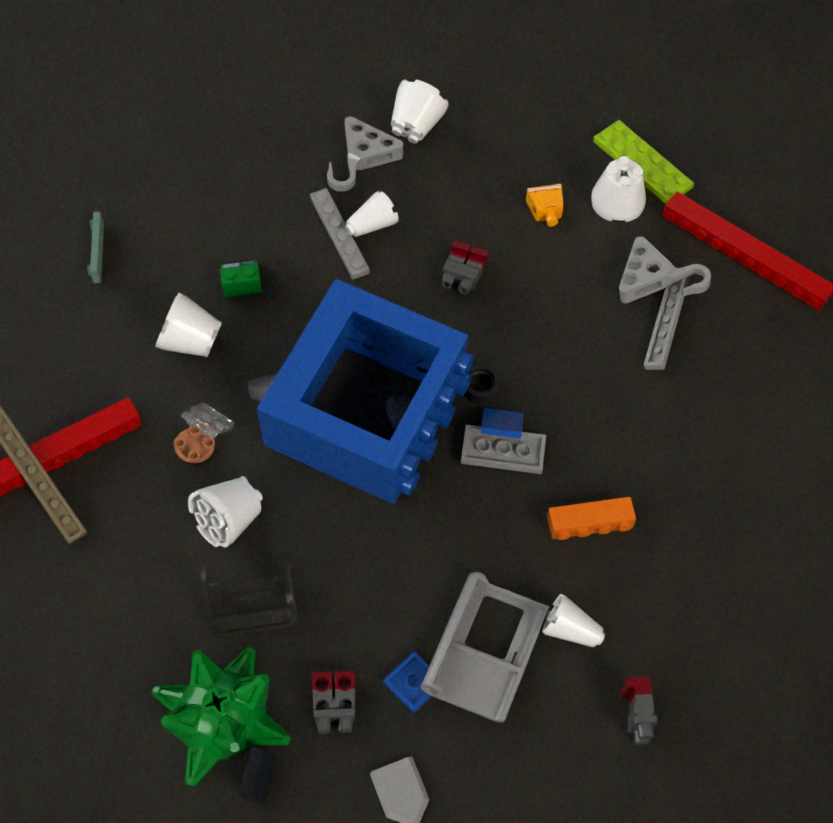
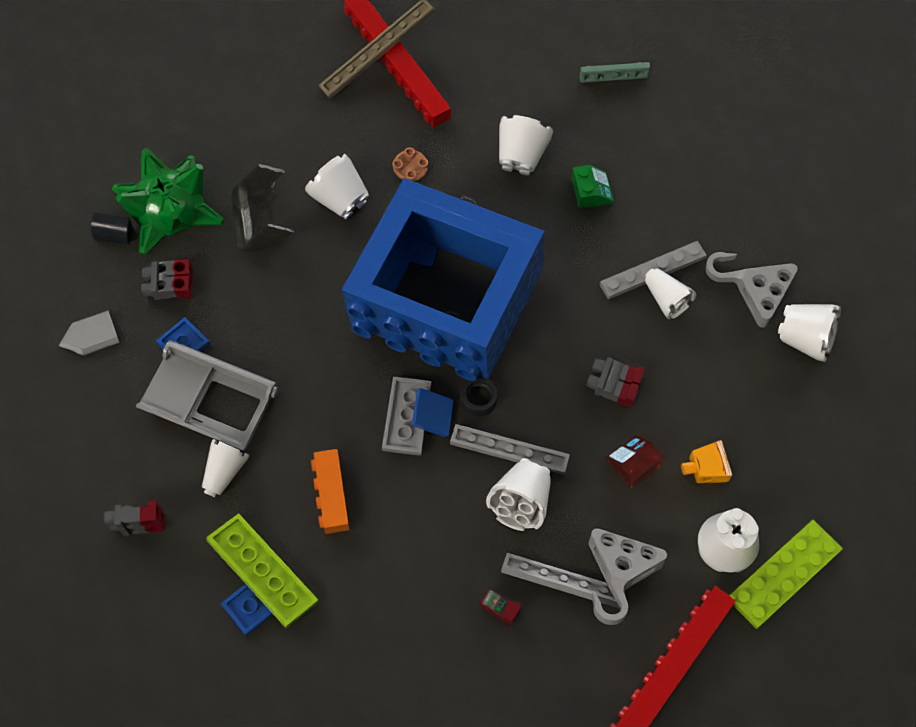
camera: 90 degrees right, 5 degrees up
(207, 420) = (436, 173): clear plate -> none
(537, 360) = (508, 448): none -> light grey plate
(545, 258) = (635, 460): none -> clear red slope
(591, 342) = (521, 496): none -> white cone
(680, 582) = (262, 570): none -> lime plate
(697, 370) = (500, 607): none -> leg
(717, 595) = (246, 609): none -> blue tile

